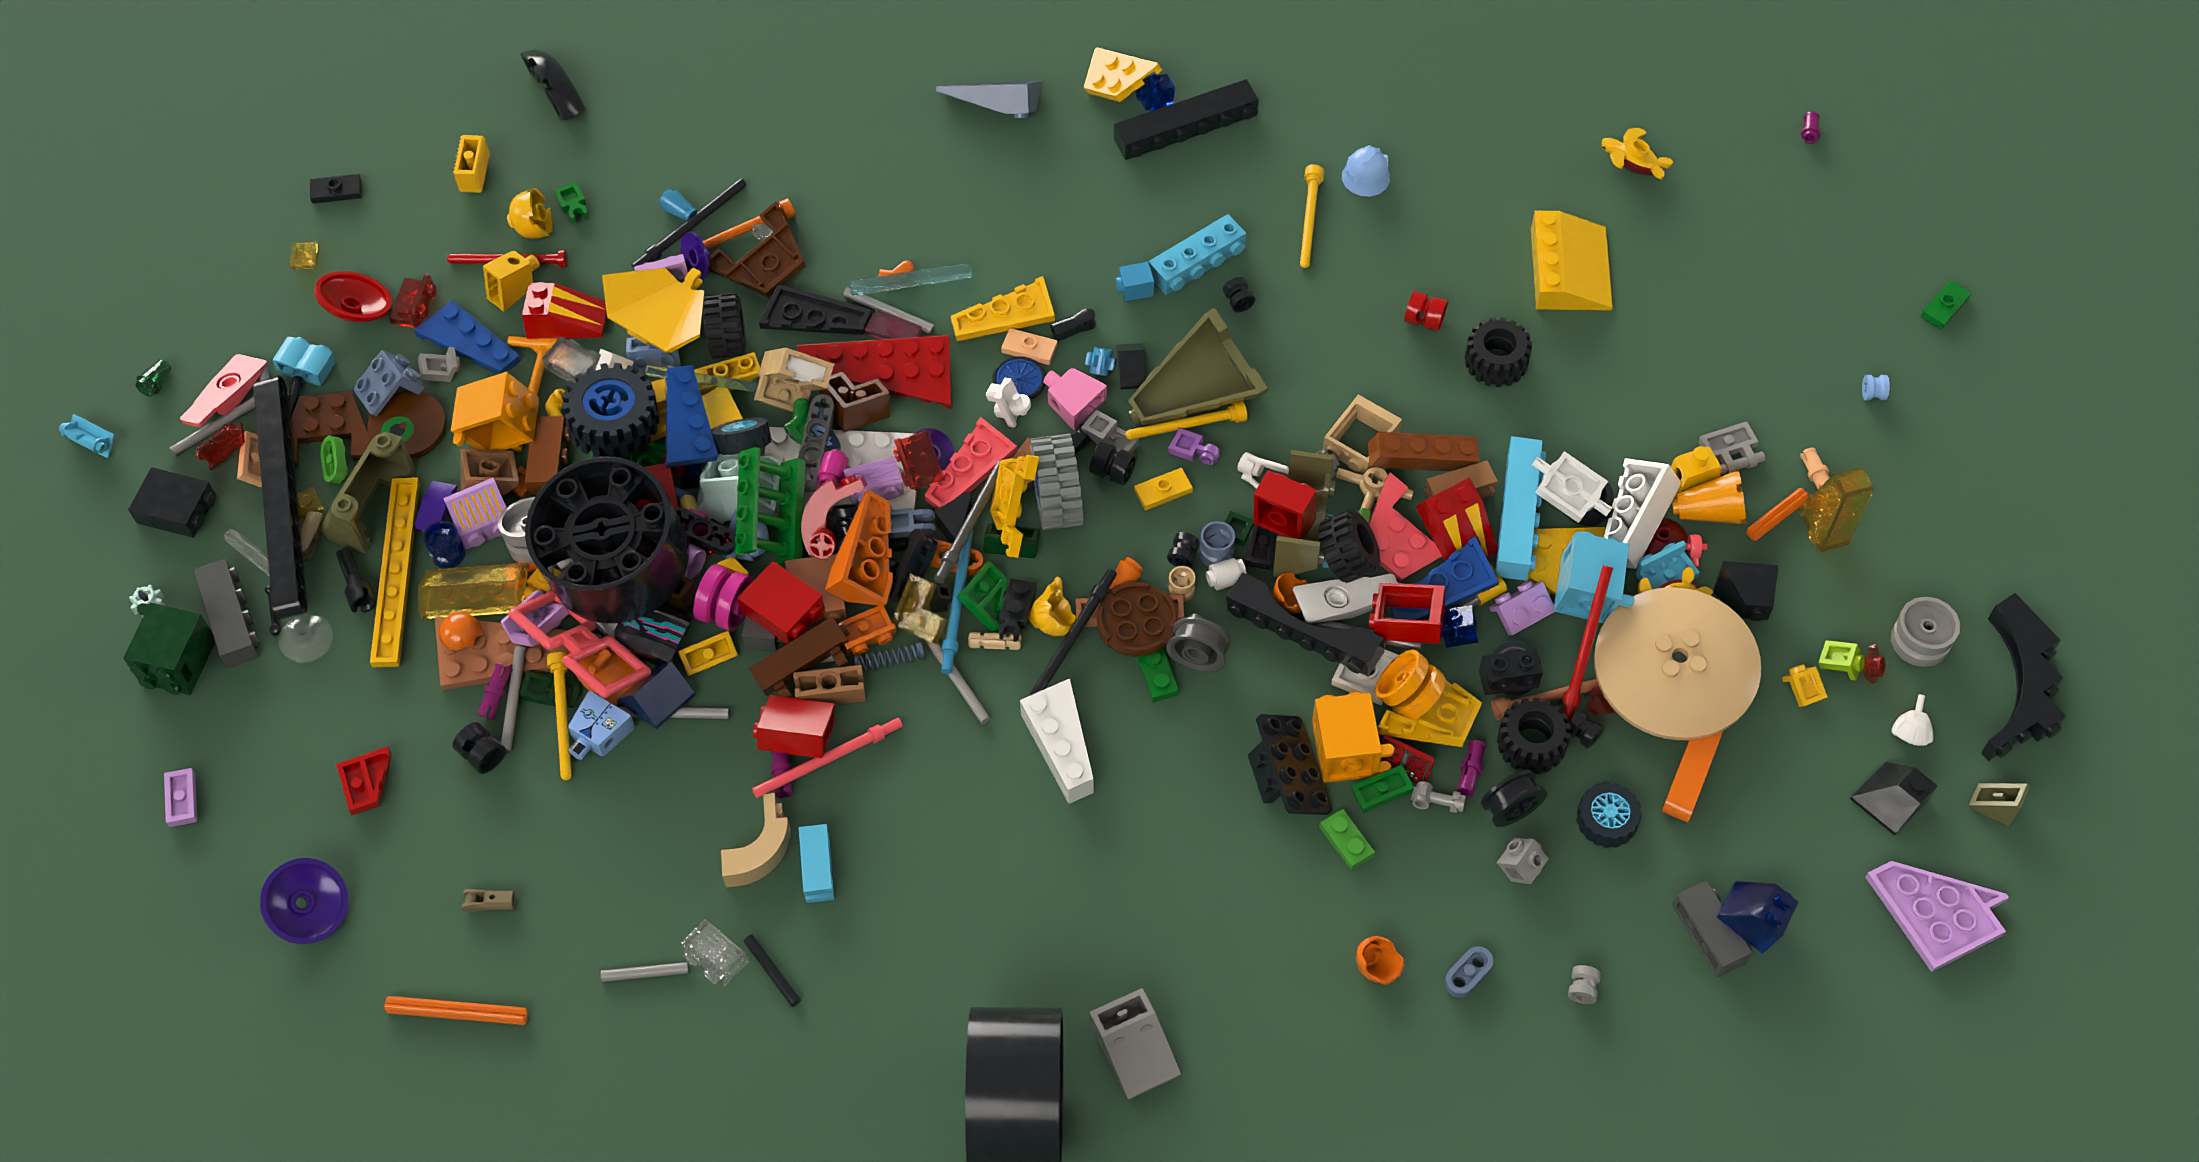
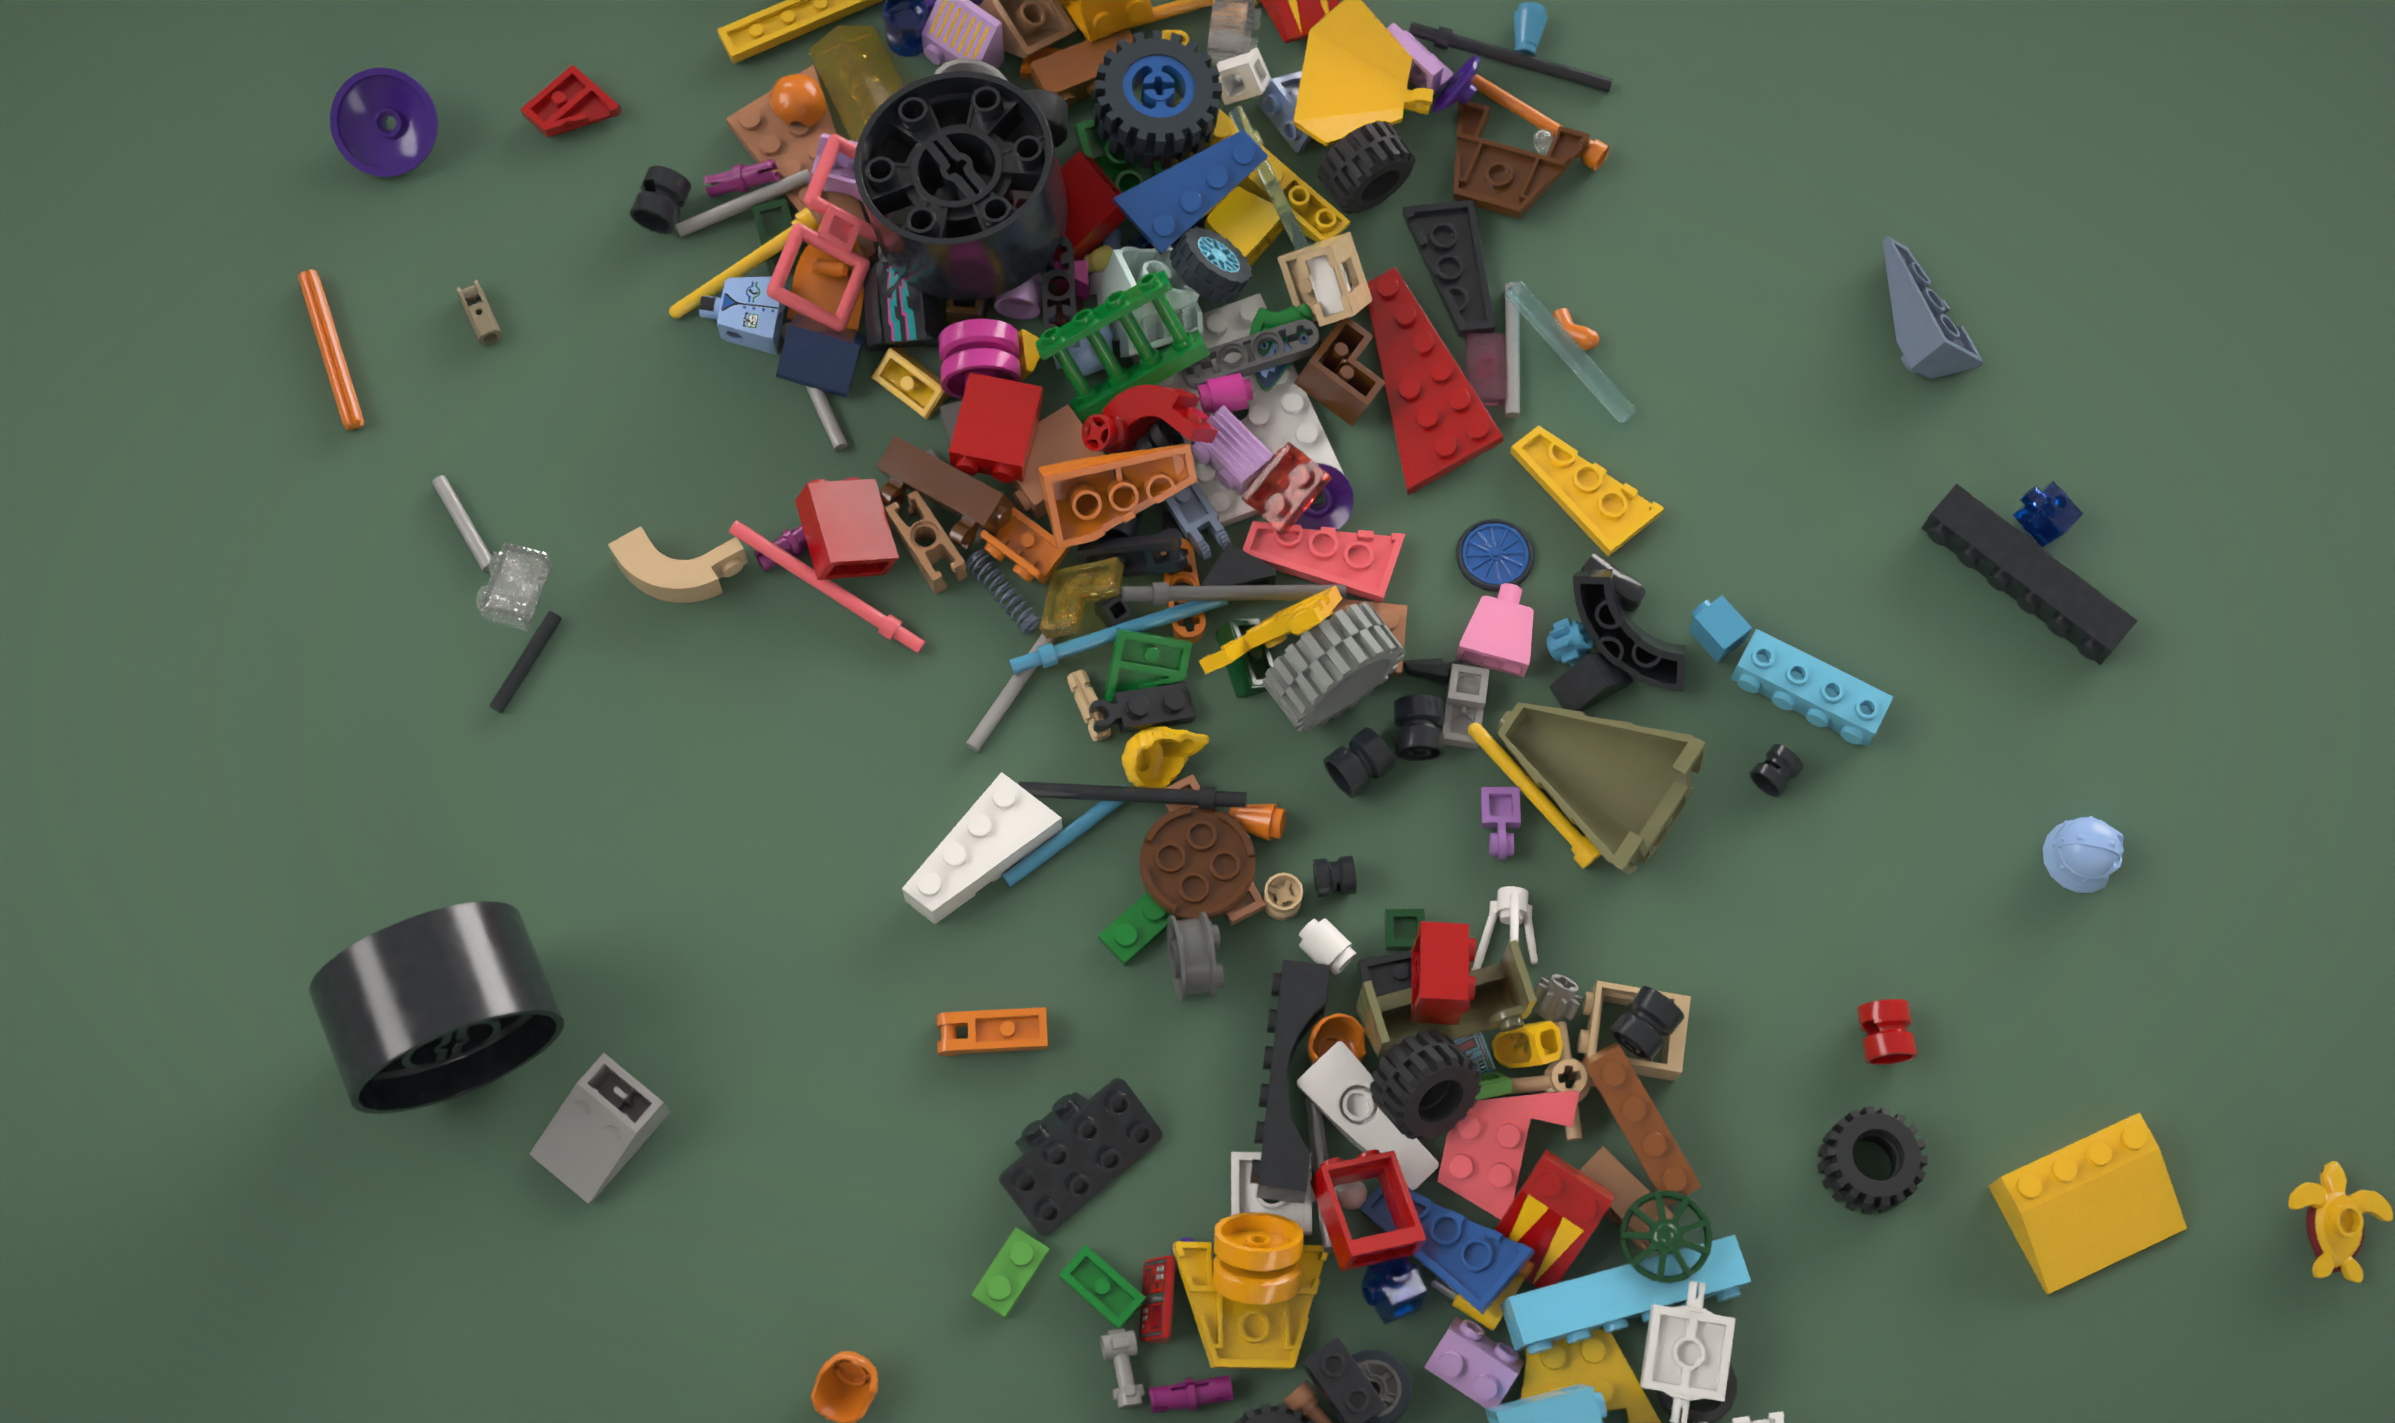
camera: 60 degrees right, 10 degrees up
(816, 863) = (681, 642): medium azure piece -> none
(1008, 401) = (1439, 554): white hips -> none
(1029, 345) = (1550, 544): light nougat plate -> none
(1080, 705) = (1059, 841): none -> dark azure bar
(1116, 74) = (2044, 450): wing -> none
(1117, 504) = (1364, 758): none -> black wheel
(1135, 326) = (1620, 639): none -> black brick
(1163, 489) = (1420, 810): yellow plate -> none
(1185, 783) = (993, 1031): none -> orange plate
(1216, 543) = (1361, 914): sand blue wheel -> none
(1314, 177) = (2033, 785): yellow piece -> none
(1346, 492) = (1528, 1045): none -> yellow rock
(1348, 738) = (1146, 1207): light orange container -> none
(1366, 415) = (1650, 1019): none -> black wheel
(1499, 466) = (1666, 1236): none -> dark green wheel

